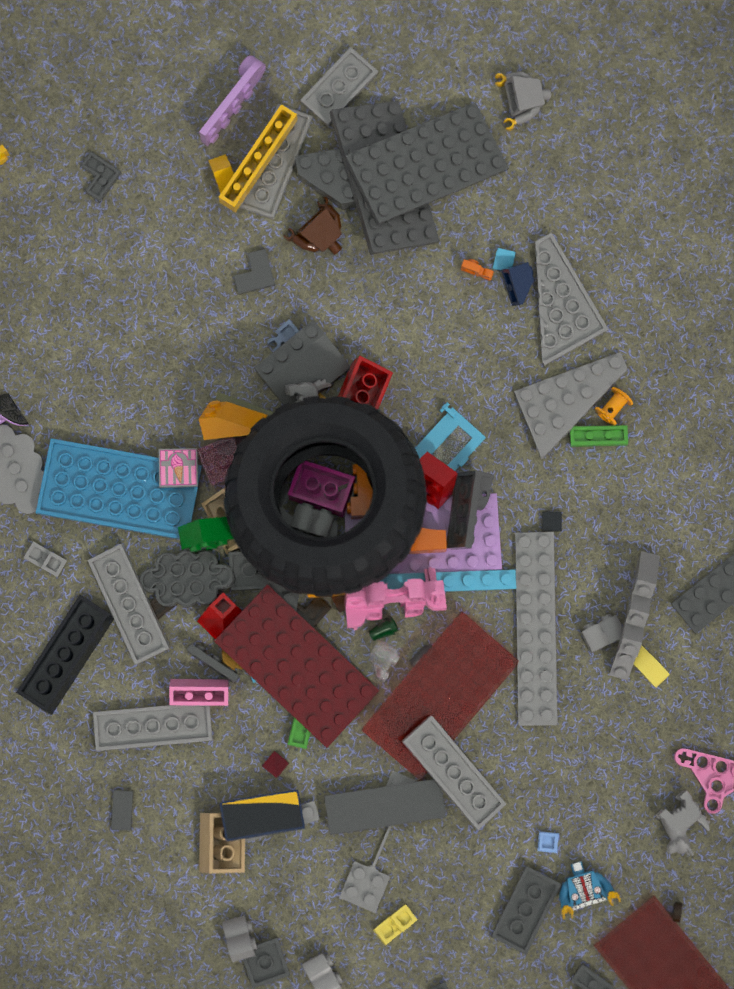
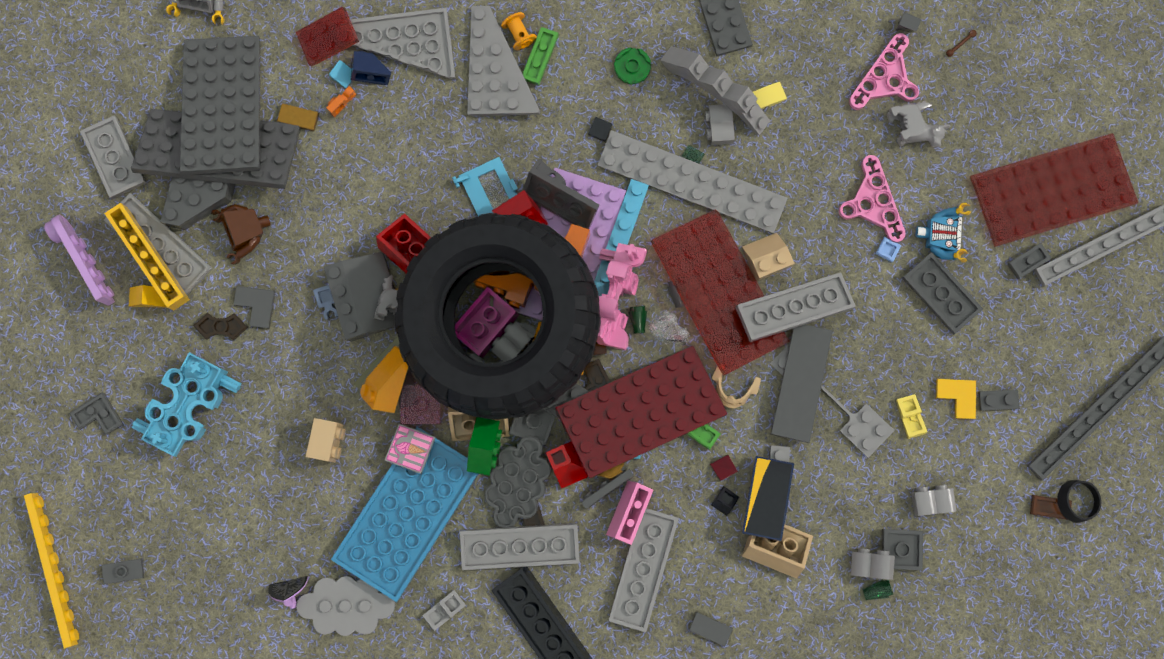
camera: 70 degrees left, 0 degrees up
(155, 388) = (325, 440): none -> tan brick
(169, 259) = (208, 379): none -> medium azure gear
(218, 954) = (878, 590): none -> clear green cone
(225, 258) = (229, 326): none -> dark brown tile
(245, 778) = (725, 501): none -> black slope
(339, 746) = (729, 401): none -> tan helmet
(438, 965) = (964, 394): none -> yellow tile
(446, 236) = (298, 116): none -> pearl gold tile
(493, 728) = (768, 256): none -> tan slope
(533, 231) = (327, 36): none -> clear red plate
(563, 619) = (693, 154): none -> clear green plate
(596, 804) = (870, 193): none -> bright pink beam
(621, 527) = (632, 71): none -> green tile
(677, 910) = (993, 160): dark brown tile -> none

